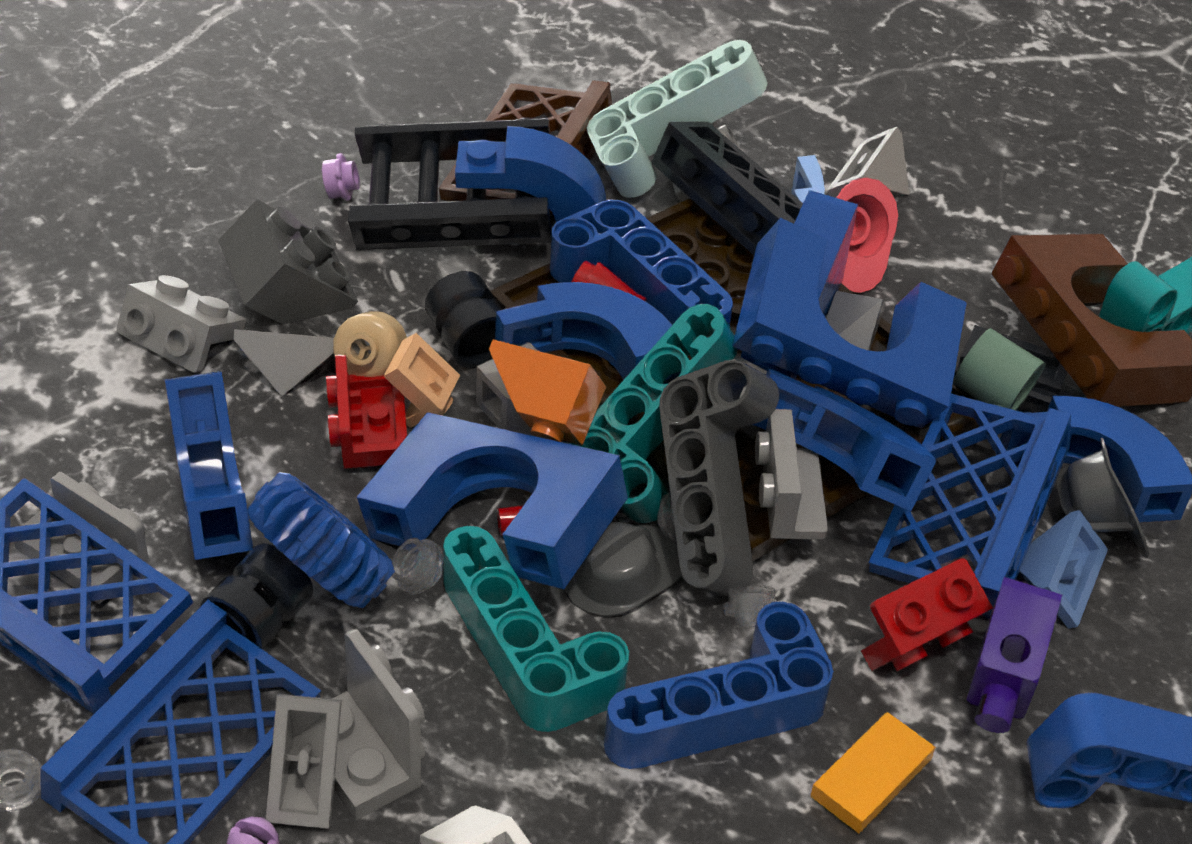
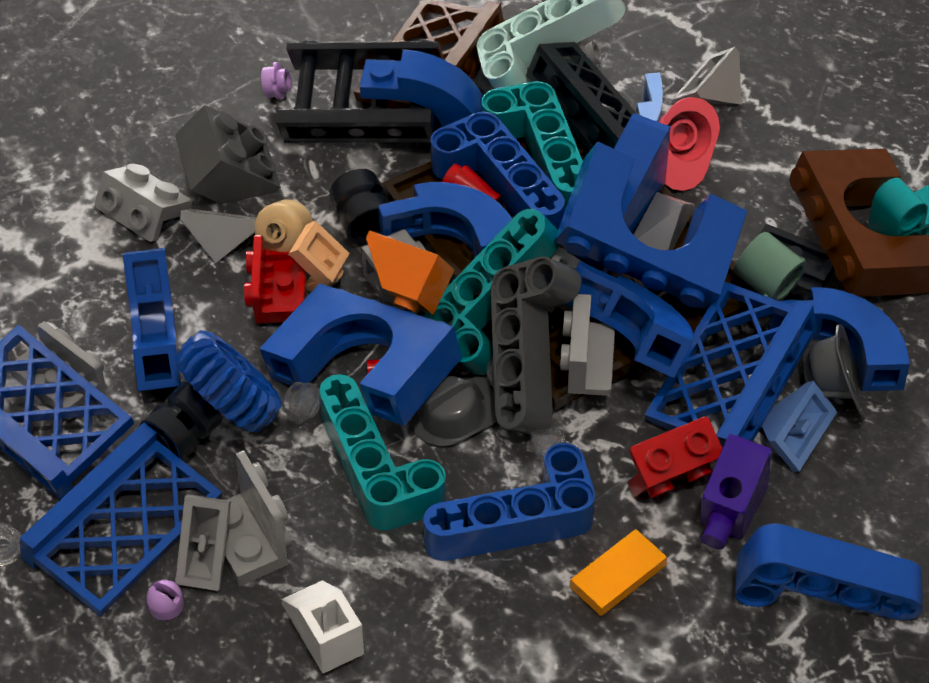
camera: 10 degrees right, 5 degrees up
(686, 214) = (536, 114): none -> teal beam

